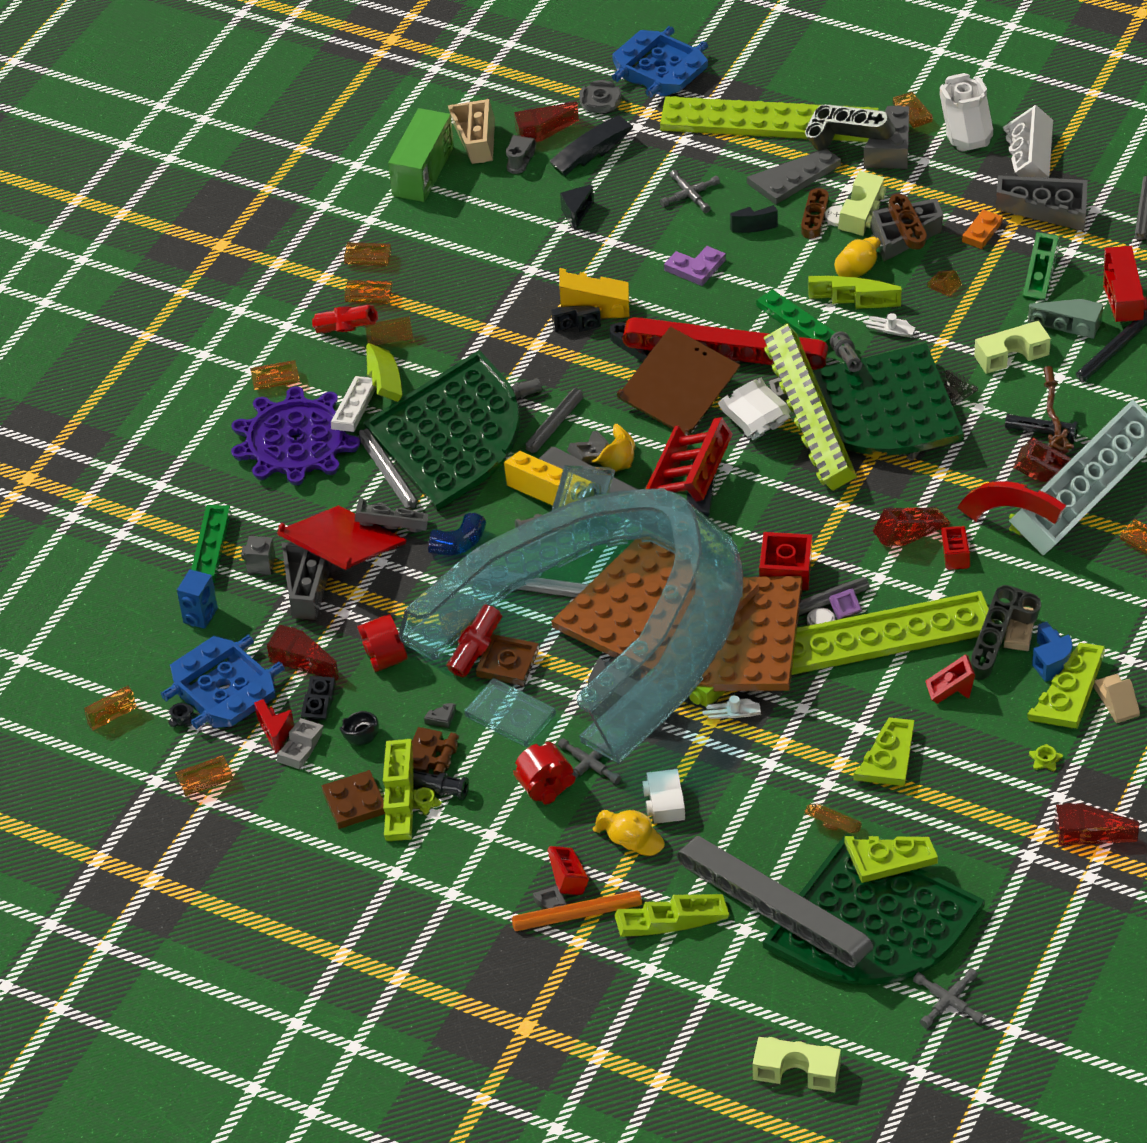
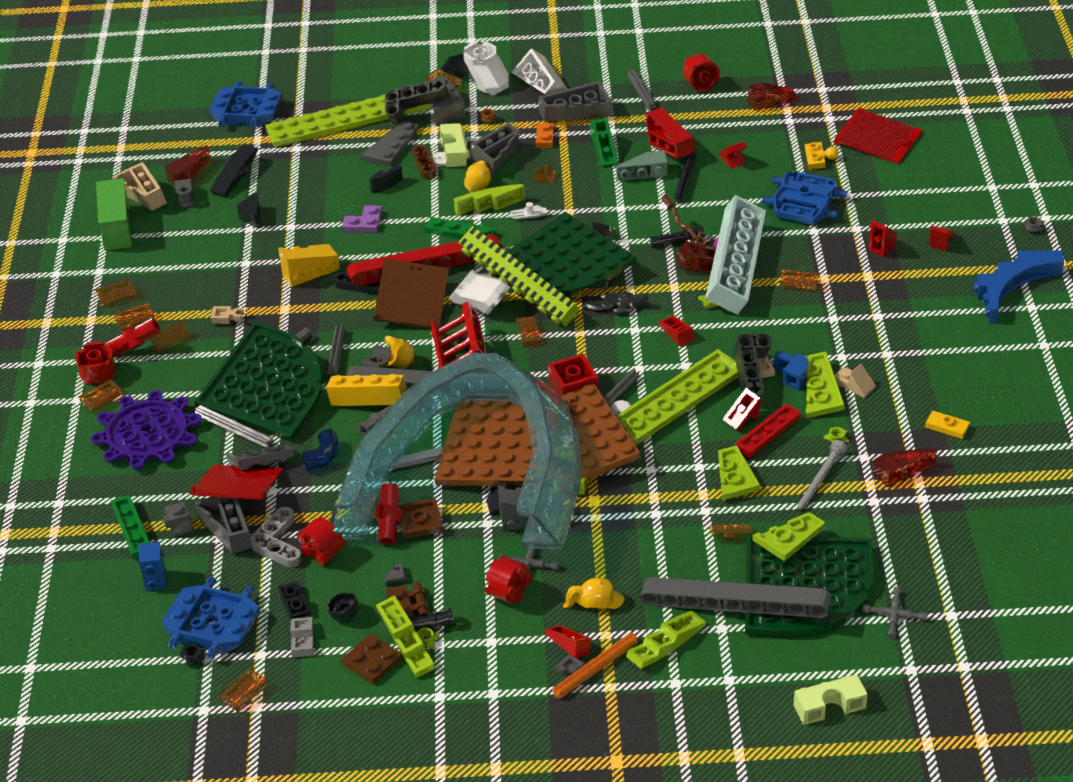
camera: 30 degrees left, 5 degrees down
(110, 708) = (132, 671): clear orange plate -> none
(274, 726) = (271, 633): red slope -> none
(290, 334) = (95, 363): none -> red brick
(300, 652) = (260, 573): clear red slope -> none
(341, 616) = (271, 540): none -> light grey beam
(353, 404) = (179, 391): white tile -> none
(384, 372) = (188, 363): lime slope -> none
(464, 326) = (224, 314): none -> tan plate
(510, 712) = (446, 553): clear light blue tile -> none
(581, 316) = (305, 279): black slope -> none
(582, 482) = (401, 378): clear light blue tile -> none
(600, 96) = (218, 139): dark grey plate -> none
(665, 796) = (602, 561): white brick -> none
(689, 191) = (323, 177): dark grey piece -> none
(734, 709) = (604, 488): white piece -> none
(783, 480) = (528, 331): none -> clear orange plate
(845, 604) = (632, 392): medium lavender tile -> none
(850, 355) = (511, 235): dark grey pin -> none
(907, 229) = (508, 148): reddish brown beam -> none
(907, 525) = (636, 327): clear red slope -> none
(918, 484) = (622, 300): none -> pearl dark grey piece
(929, 96) = (455, 66): none -> black slope
(931, 177) = (488, 116): none -> dark orange plate
(966, 717) = (768, 430): none -> red plate
(1010, 494) = (700, 278): red tile -> none
(1027, 339) = (612, 201): yellowish green arch -> none
(1029, 775) = (837, 450): none -> light grey piece

